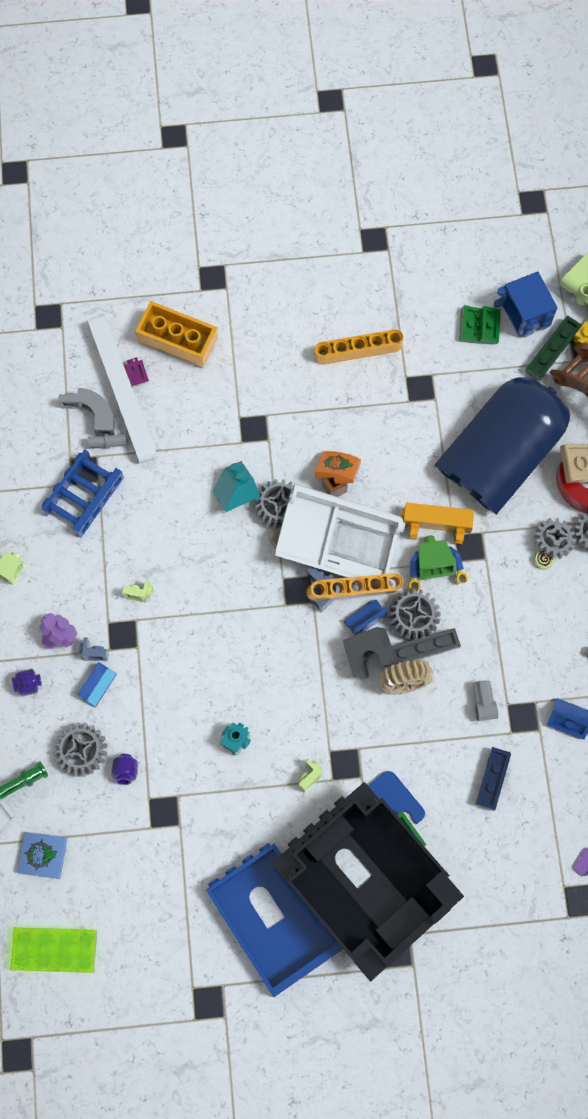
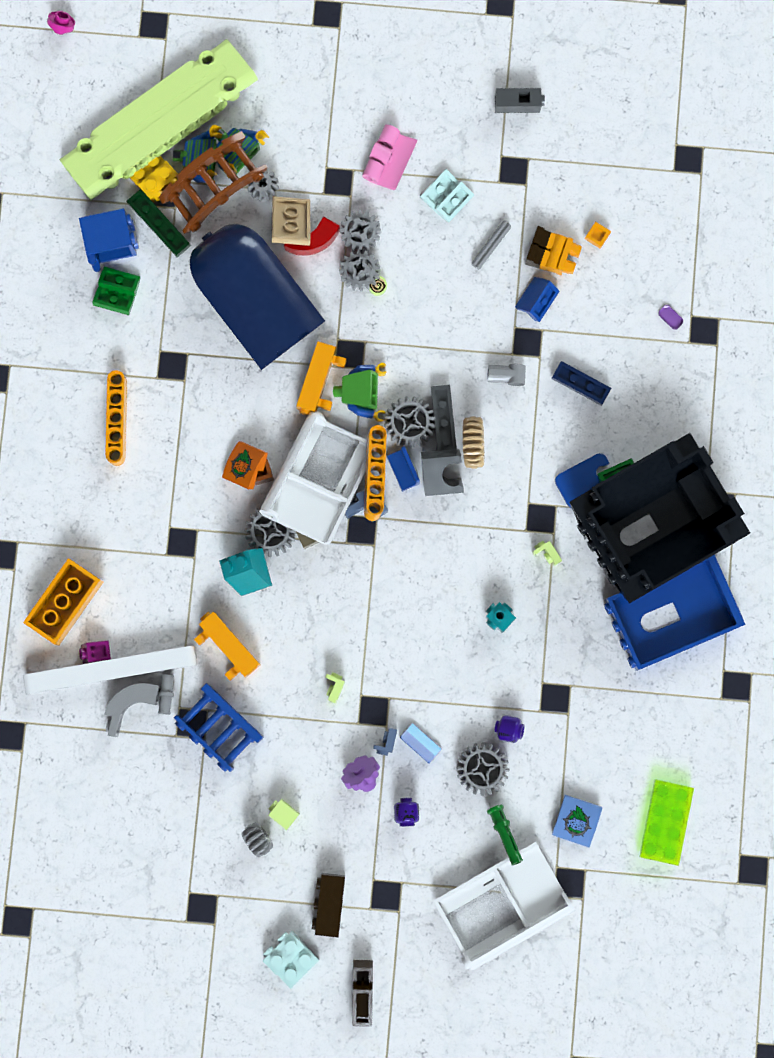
camera: 80 degrees left, 10 degrees up
(163, 487) = (229, 645): none -> light orange brick

